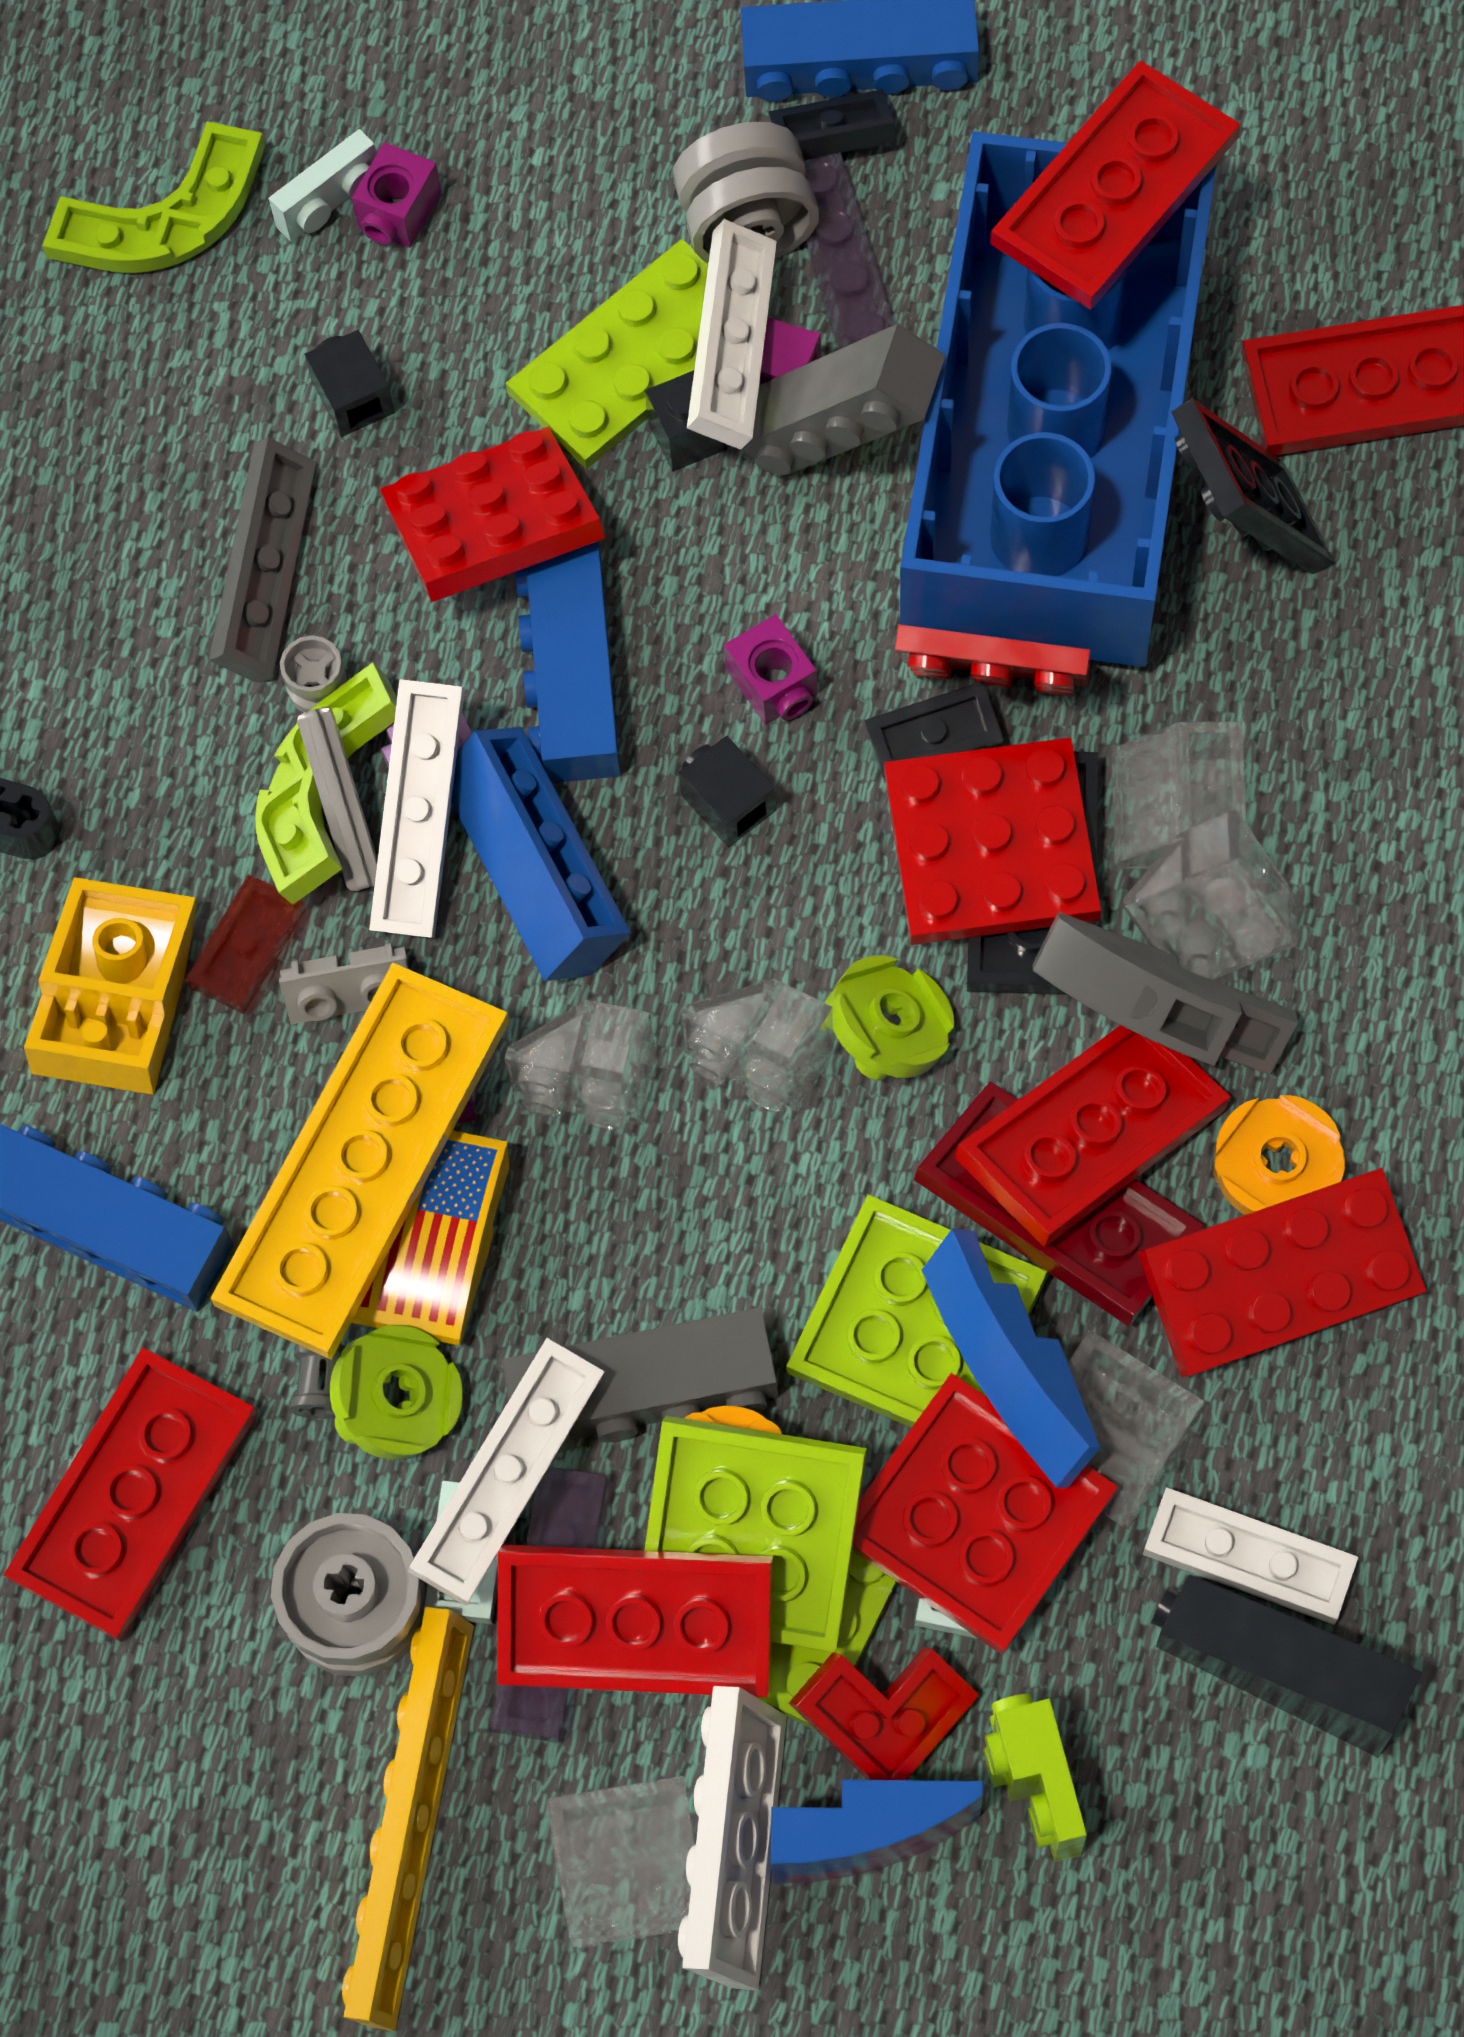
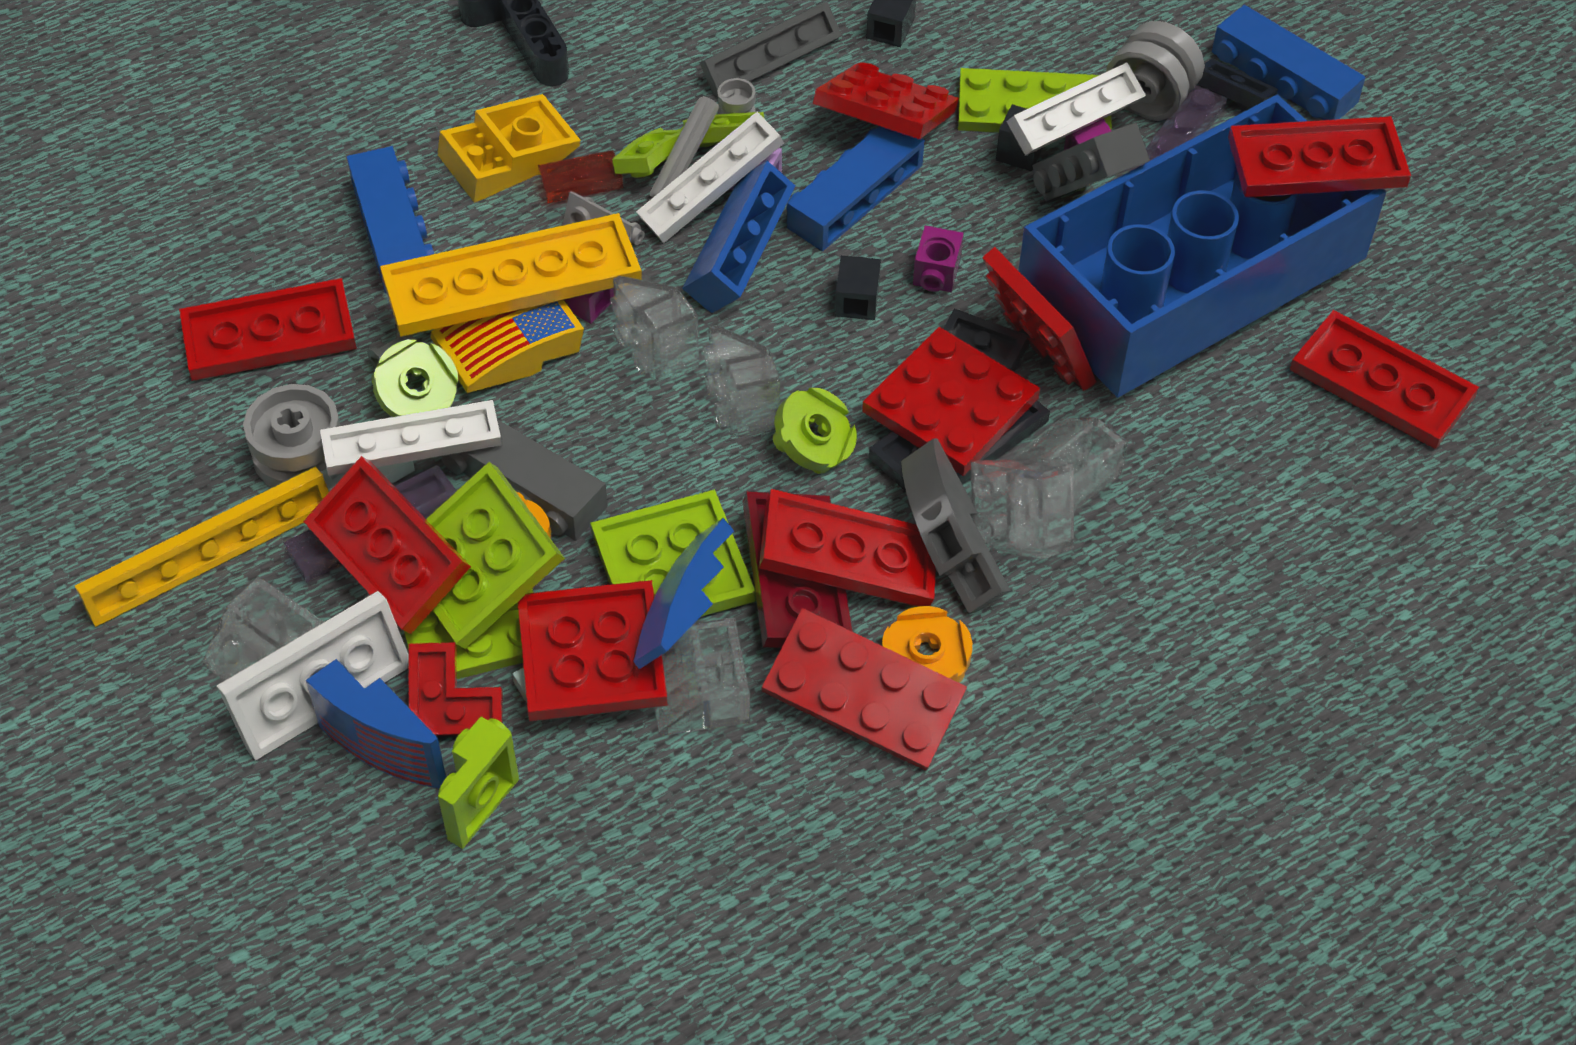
camera: 40 degrees right, 15 degrees down
(1249, 487) = (1249, 347): black plate -> none
(1250, 1556) = (699, 797): white plate -> none
(1287, 1662) = (654, 855): black slope -> none

